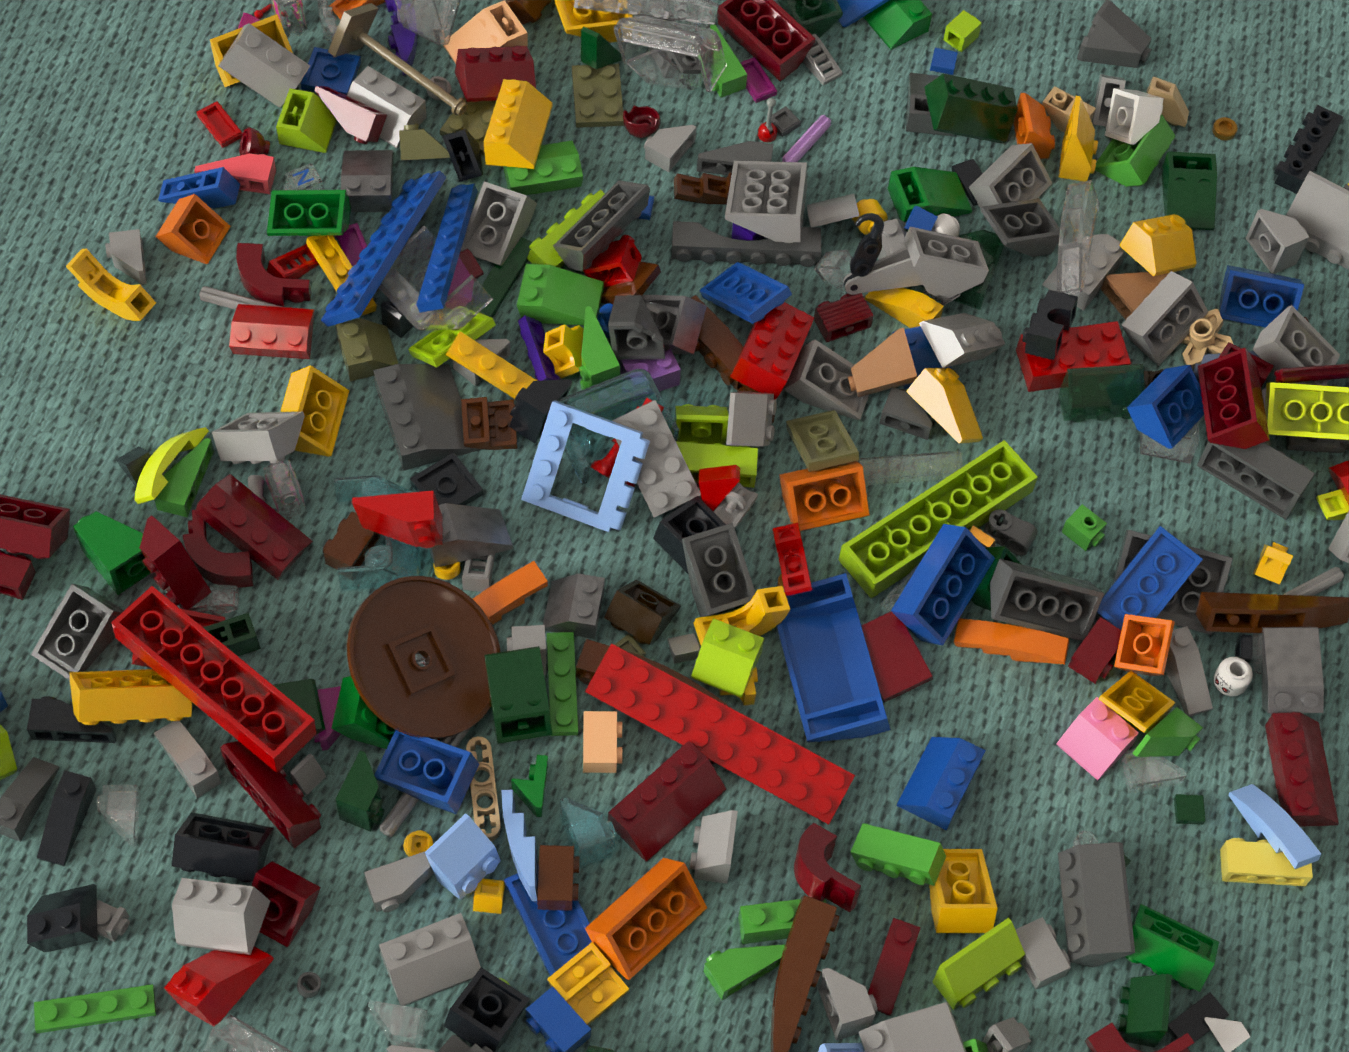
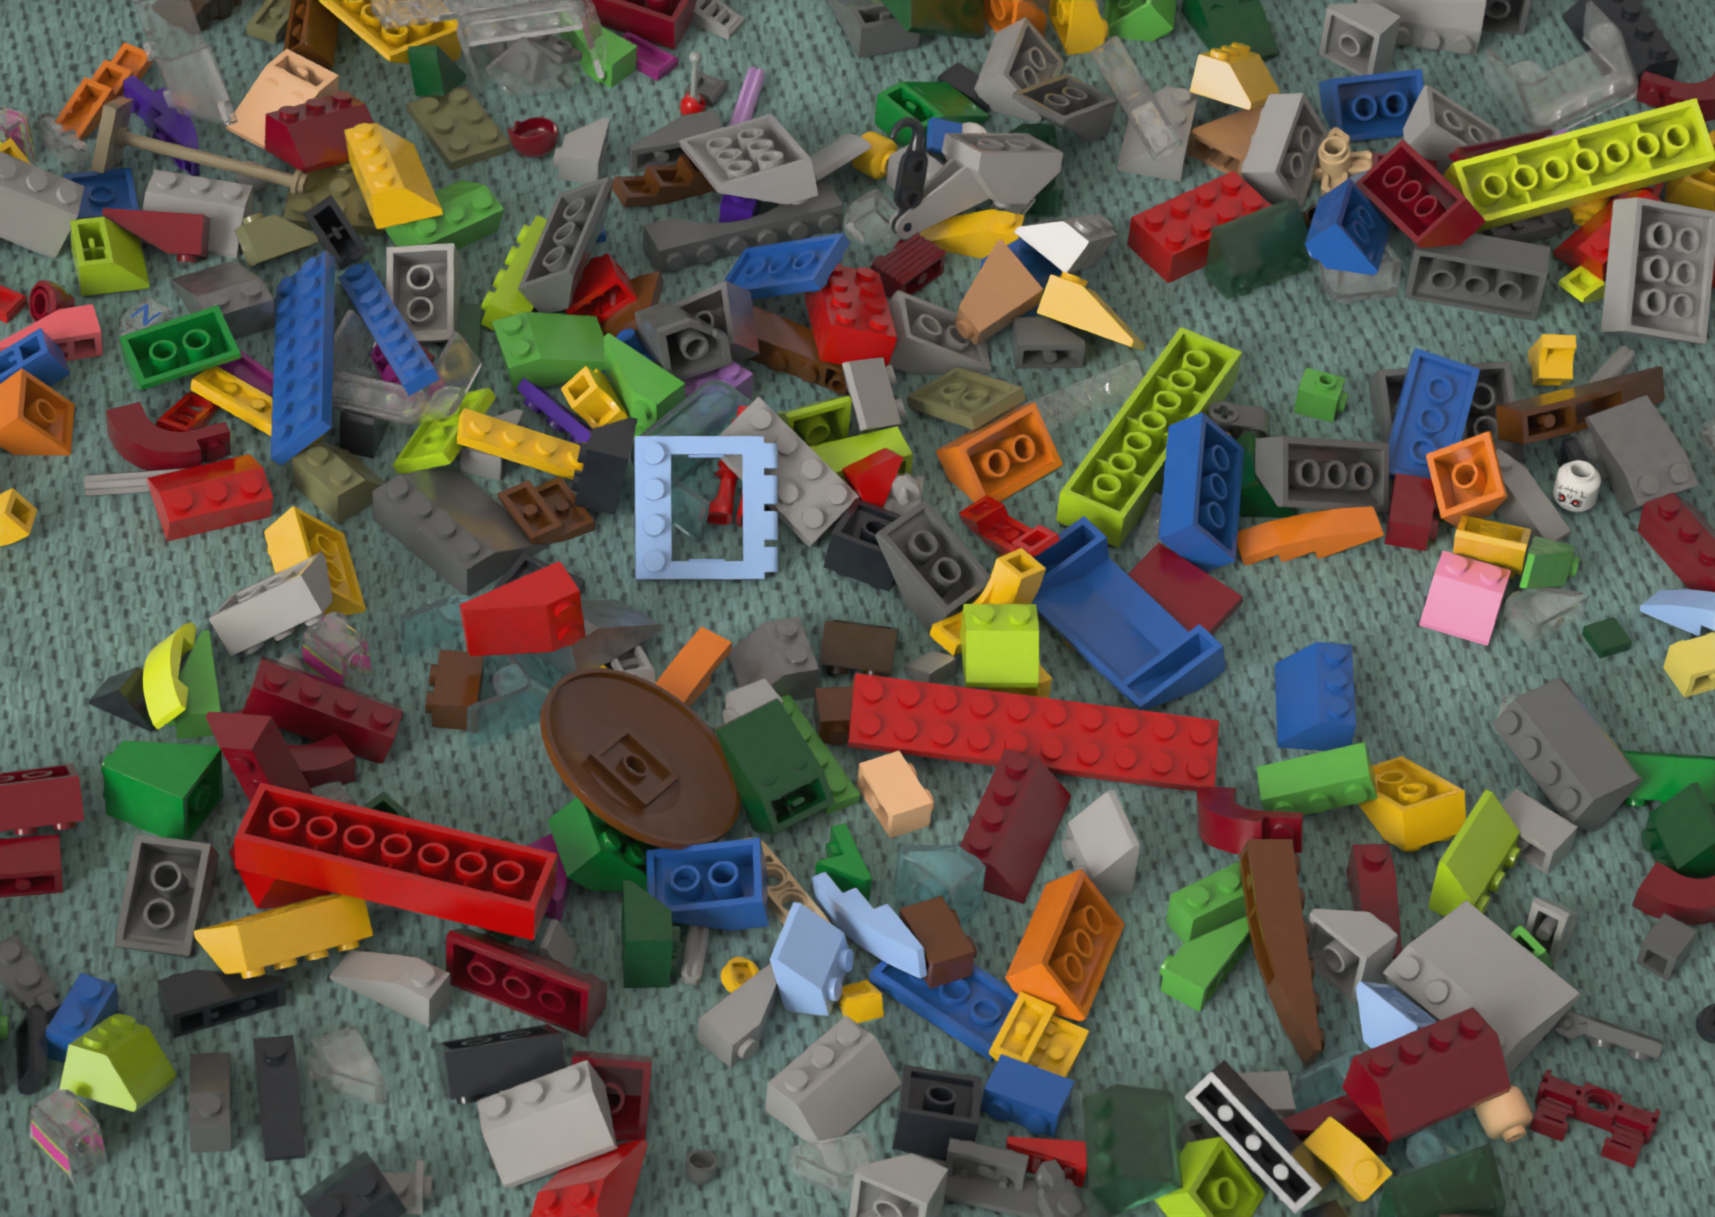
camera: 25 degrees left, 15 degrees down
(1046, 328) = (1163, 190): black arch -> none

